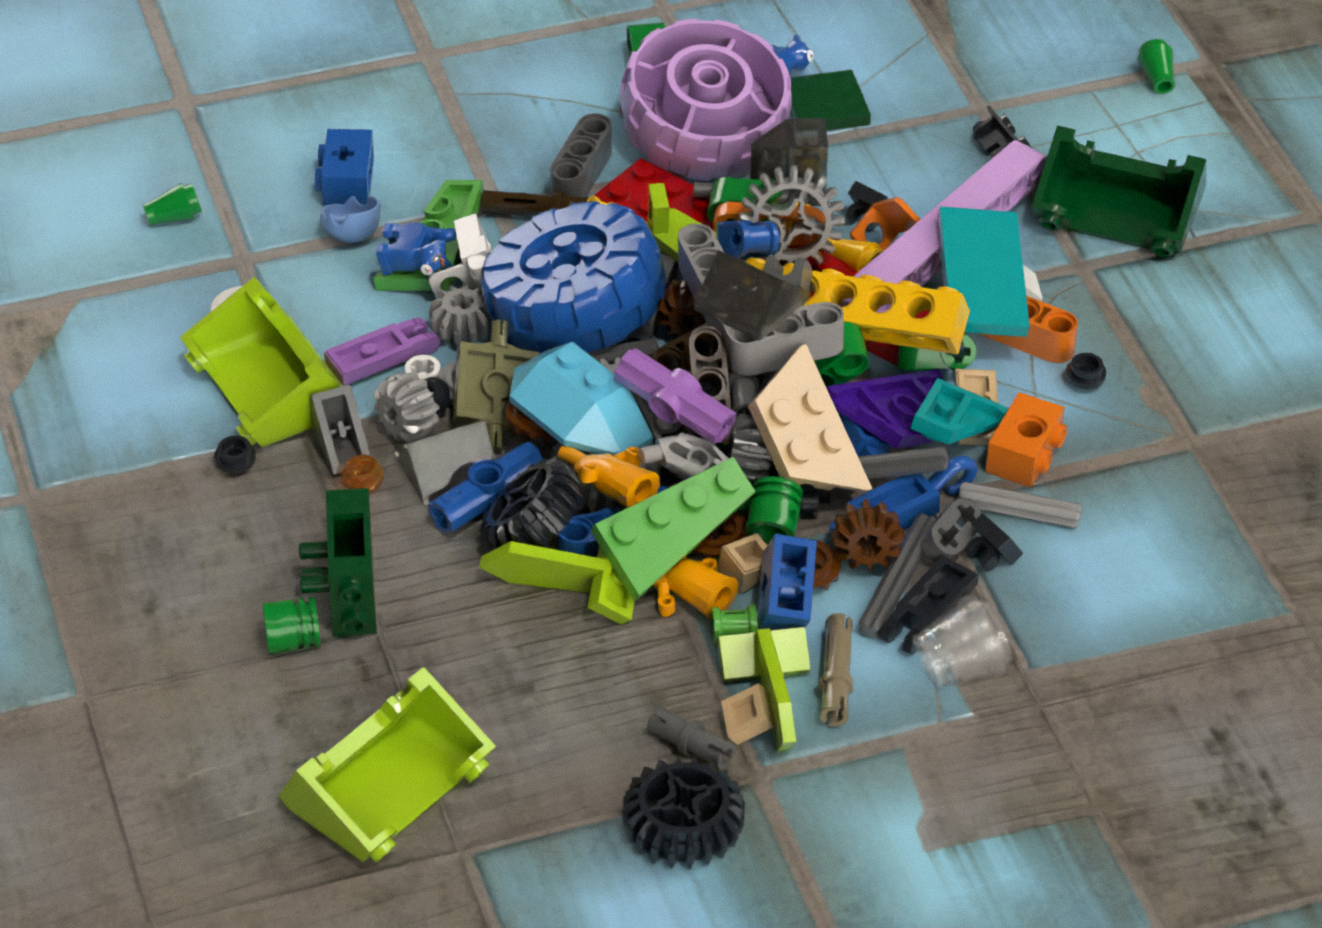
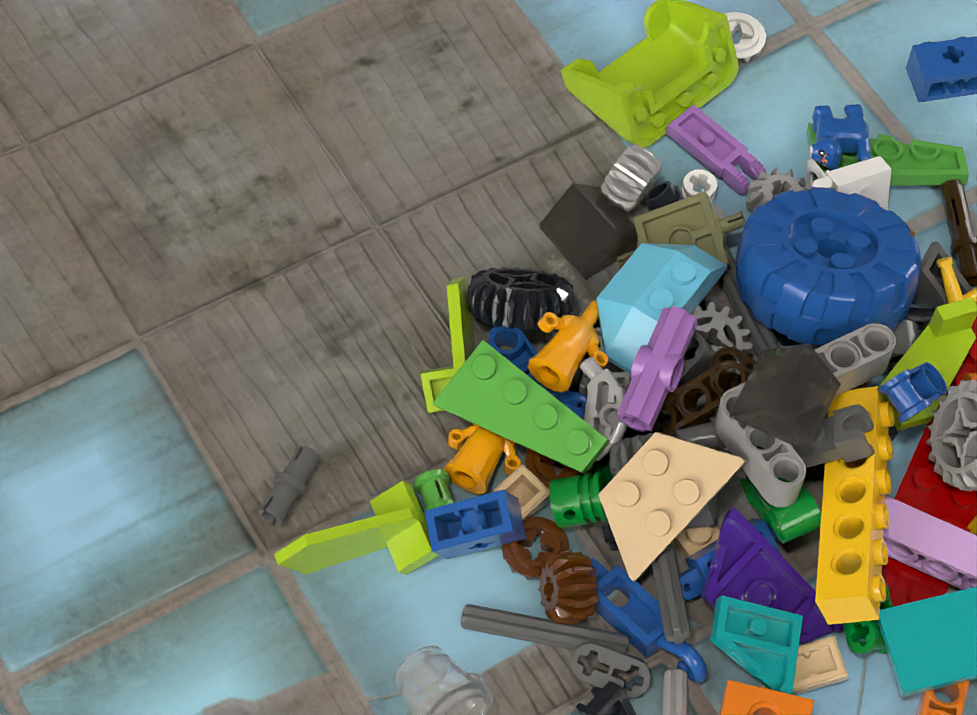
camera: 75 degrees right, 15 degrees up
(234, 454) = (548, 66): black plate -> none
(291, 625) = (349, 155): green piece -> none
(337, 427) = (593, 139): dark grey slope -> none
(349, 563) = (419, 175): dark green piece -> none
(351, 220) = (877, 85): medium blue hair -> none
(362, 472) = (553, 162): clear orange plate -> none
(389, 769) = (190, 257): lime windscreen -> none
(480, 488) = (540, 253): blue piece -> none
(683, 812) = (185, 512): black gear -> none
(747, 714) = (322, 518): tan plate -> none
(836, 680) = (401, 593): dark tan pin -> none
(929, 600) = (511, 664): black hinge -> none

